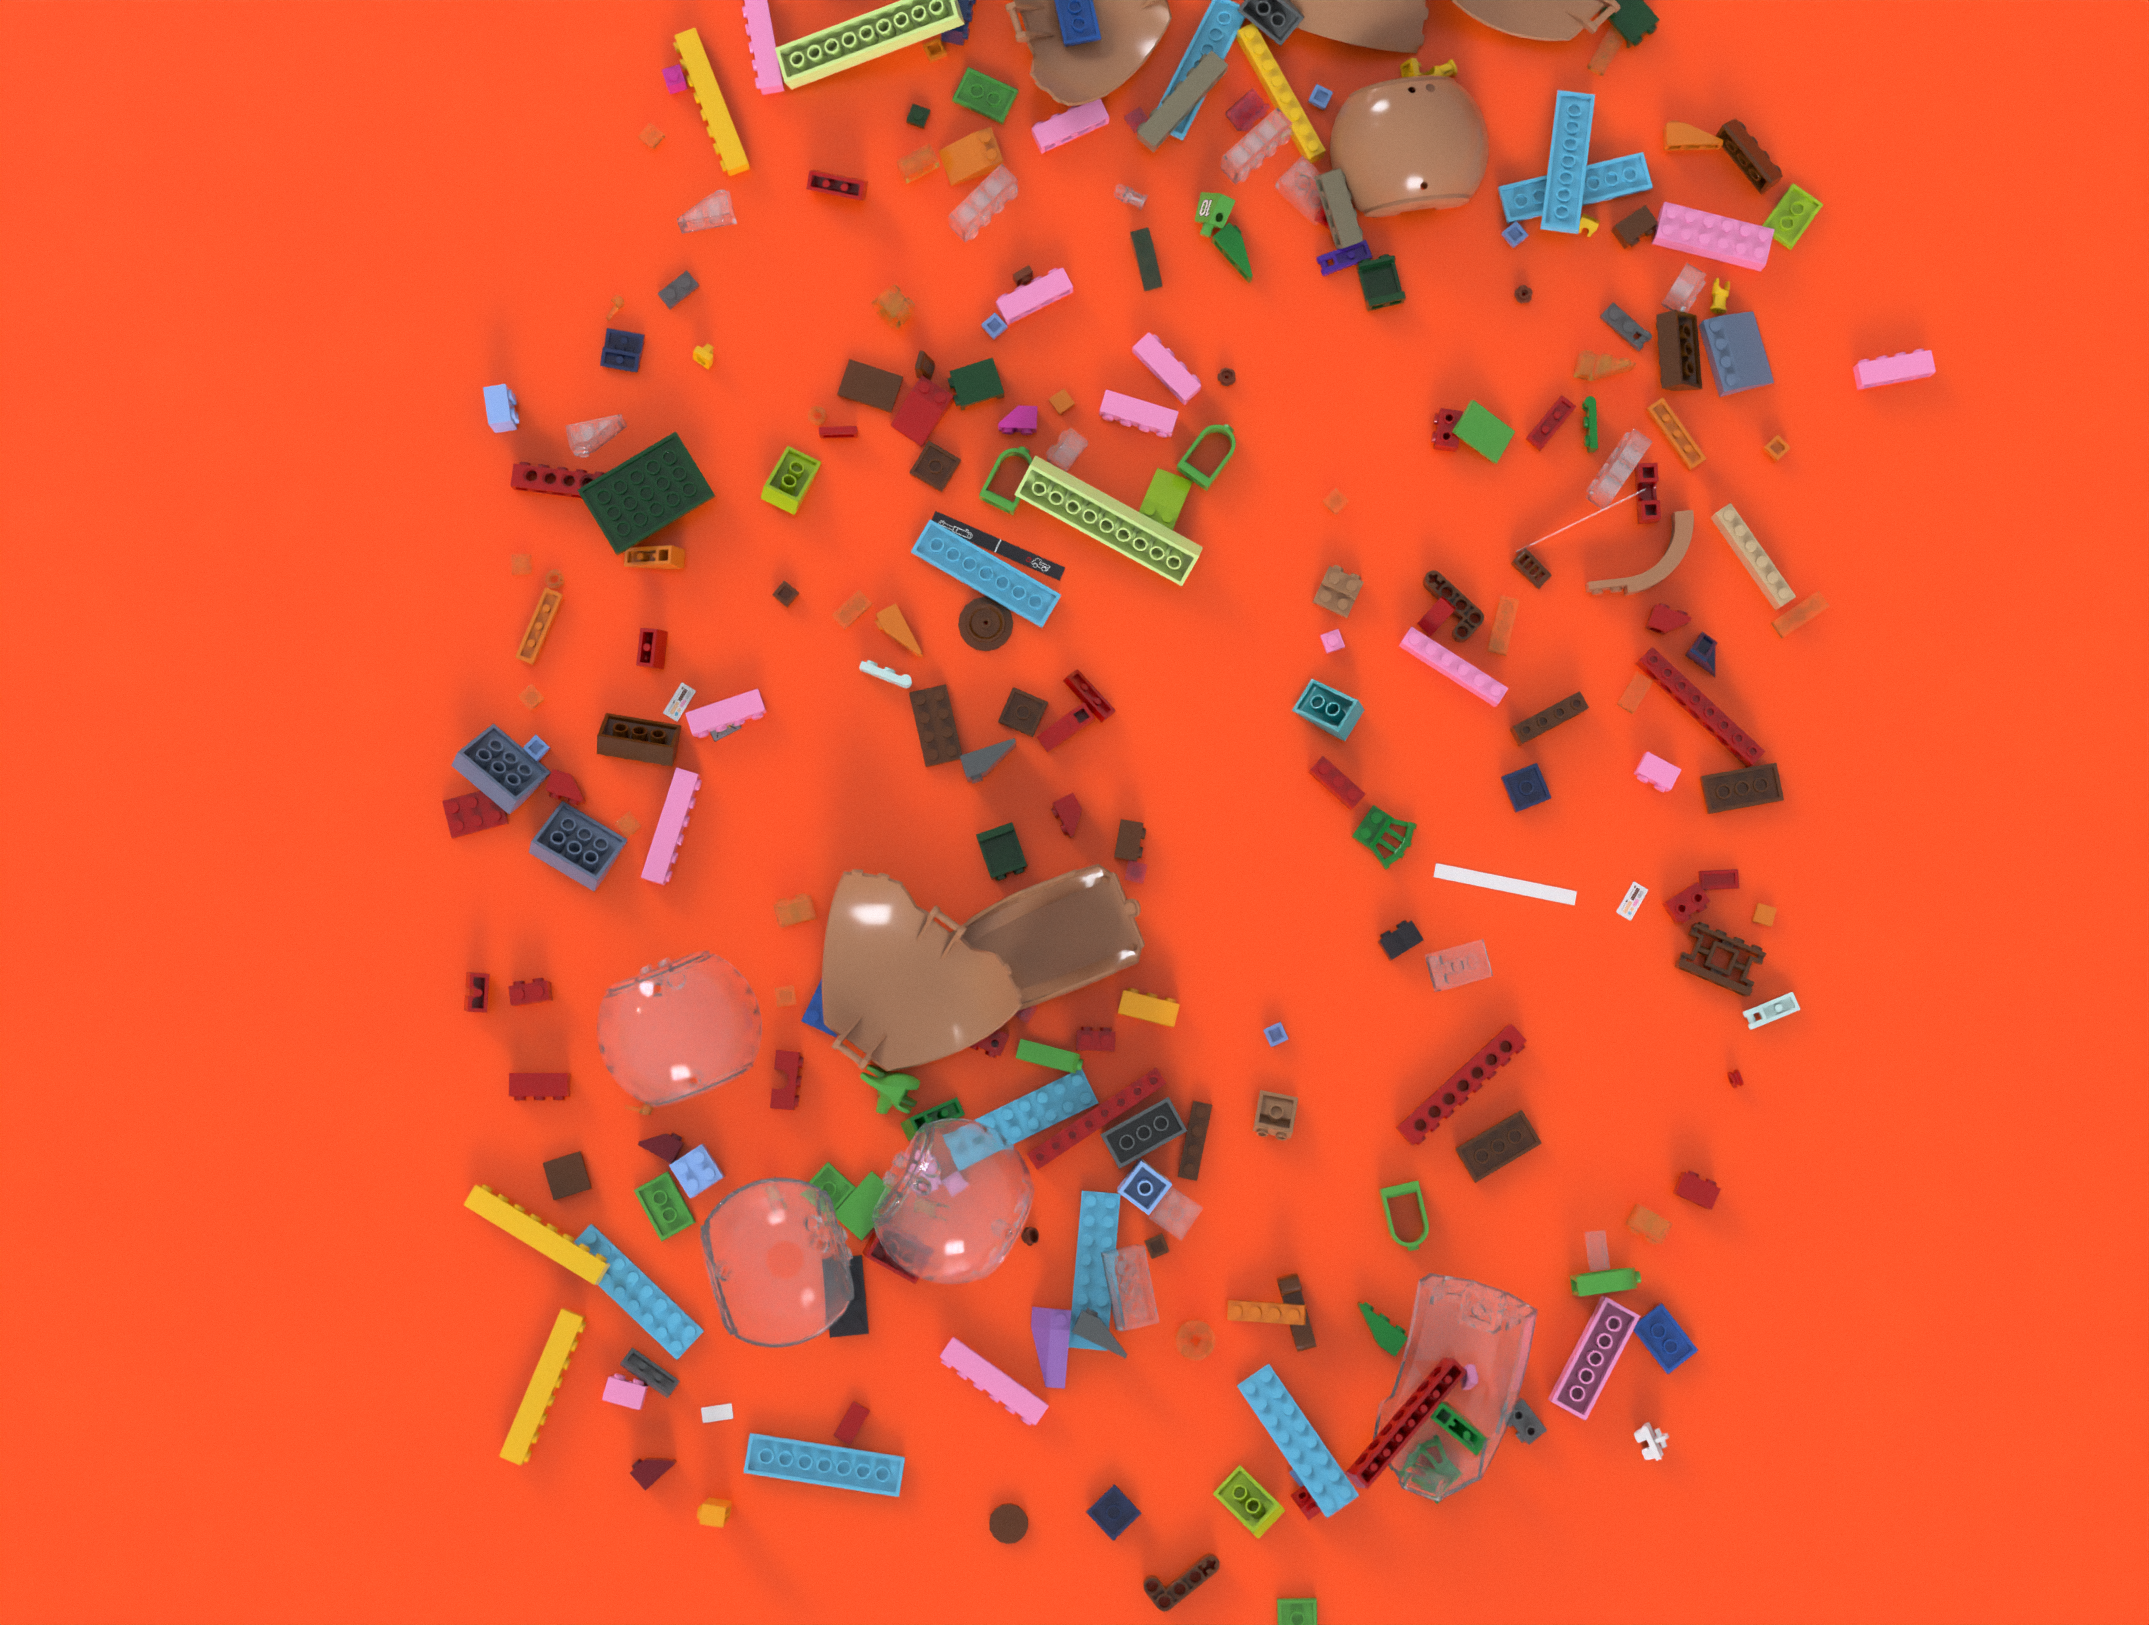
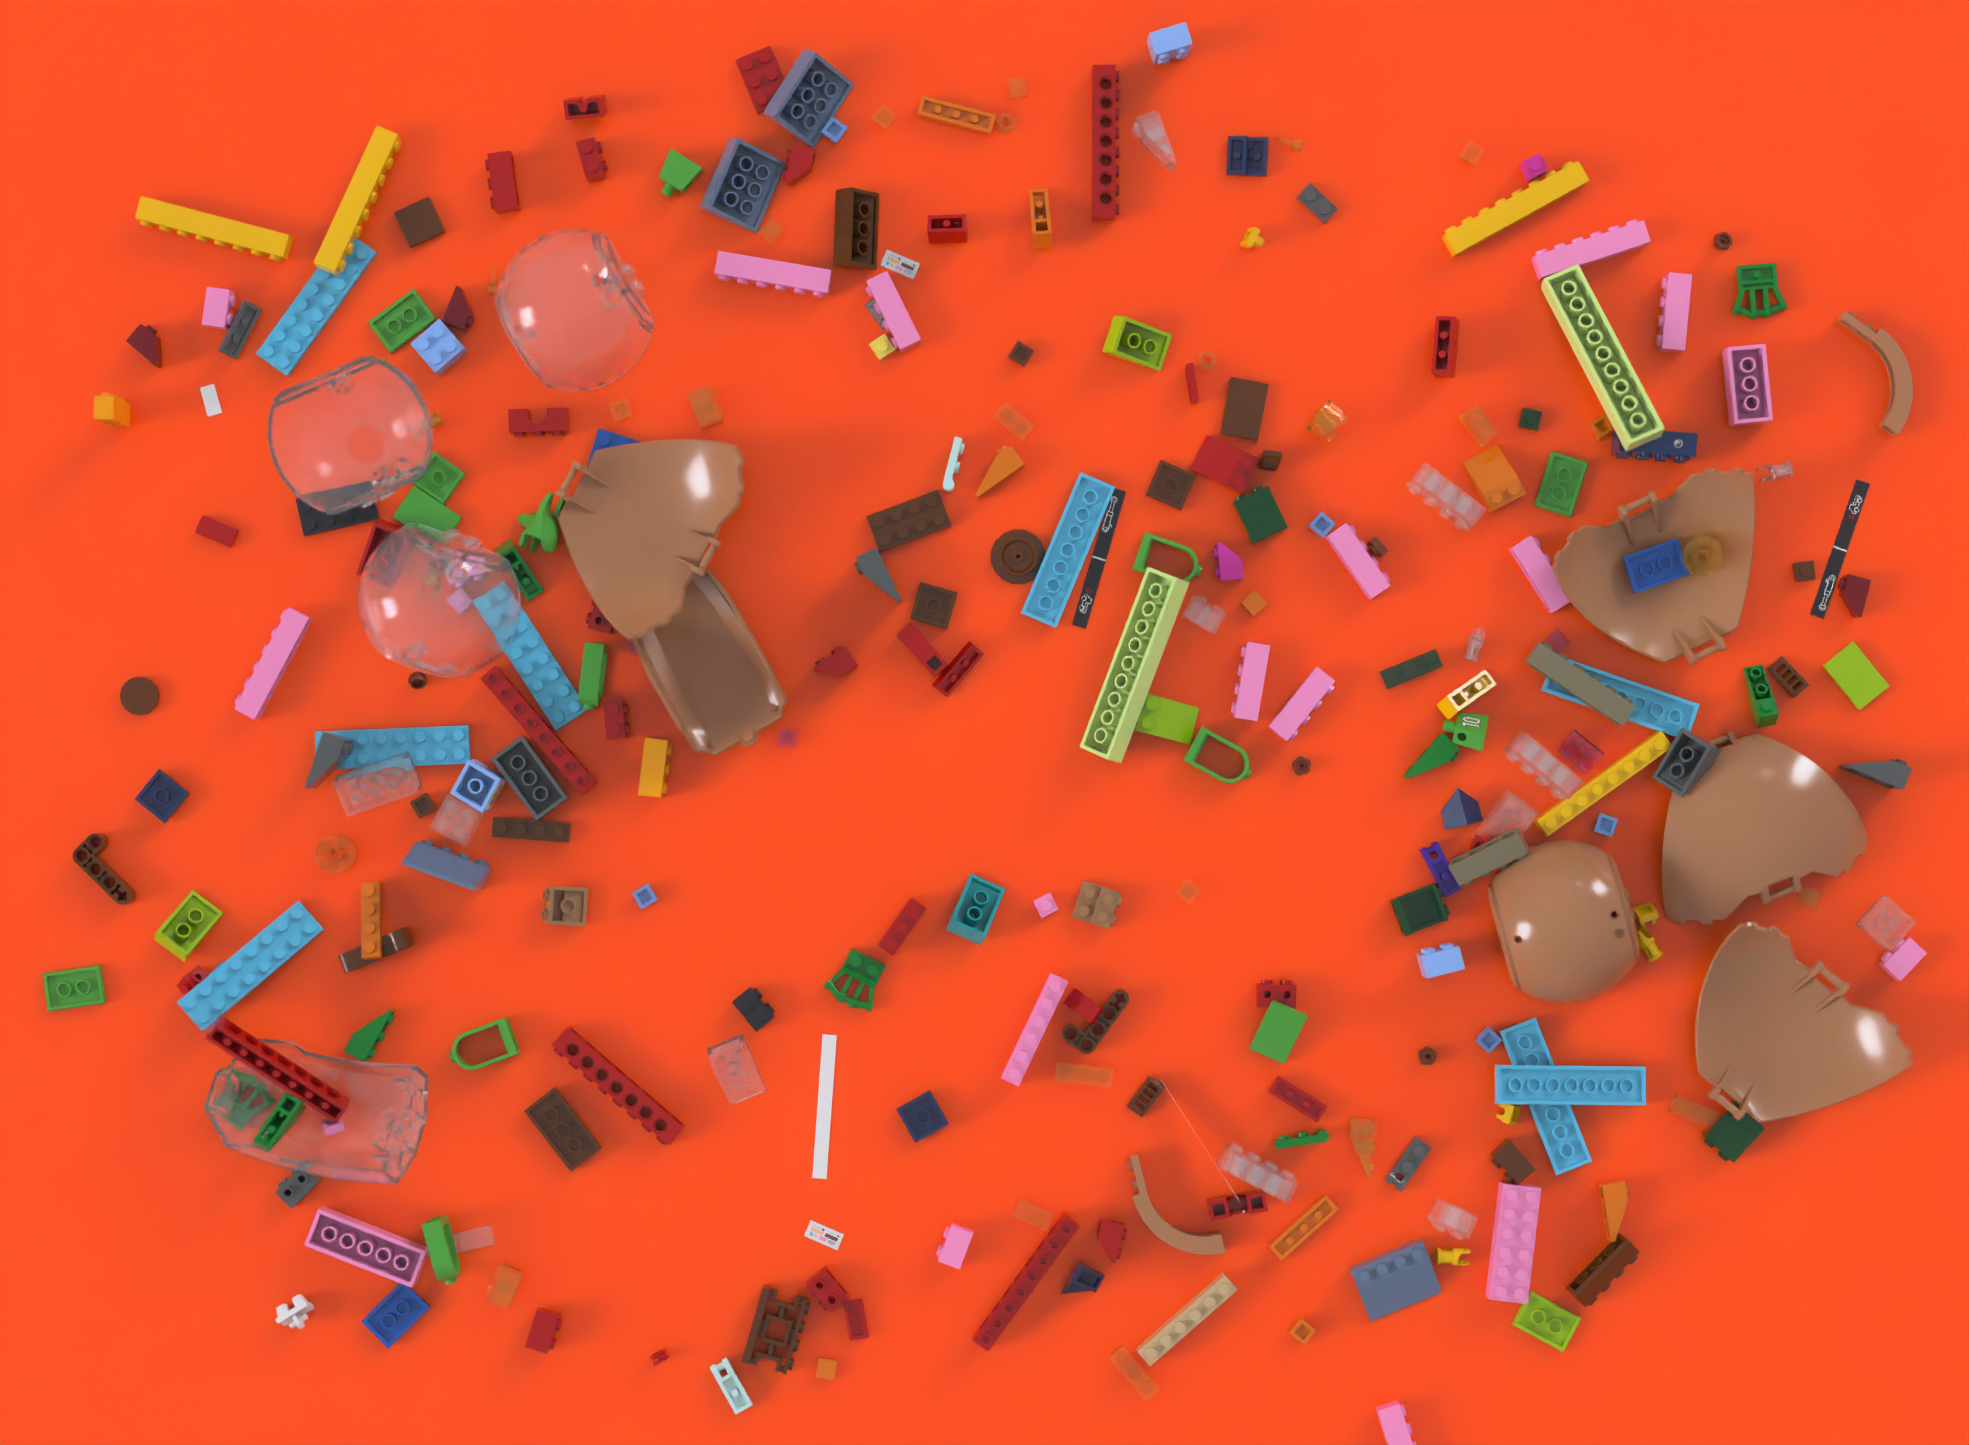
camera: 85 degrees right, 5 degrees up
(557, 908) = (678, 173): none -> bright green torso
(646, 493) = (1101, 200): dark green plate -> none
(709, 213) = (1398, 222): clear slope -> none
(759, 729) = (882, 347): none -> light yellow plate
(824, 1464) = (173, 510): medium azure plate -> none
(1002, 851) = (790, 603): dark green panel -> none
(1051, 1338) = (324, 713): medium lavender wedge -> none
(1129, 840) = (818, 727): reddish brown brick -> none
(1178, 210) = (1466, 694): none -> yellow slope
(1221, 1226) = (447, 865): none -> sand blue slope
(1290, 231) = (1460, 810): none -> dark blue slope
(1433, 268) = (1440, 960): none -> light blue brick
(1549, 718) = (994, 1131): reddish brown brick -> none
(1679, 351) = (1389, 1220): reddish brown slope -> none
(1741, 788) = (950, 1332): reddish brown plate -> none

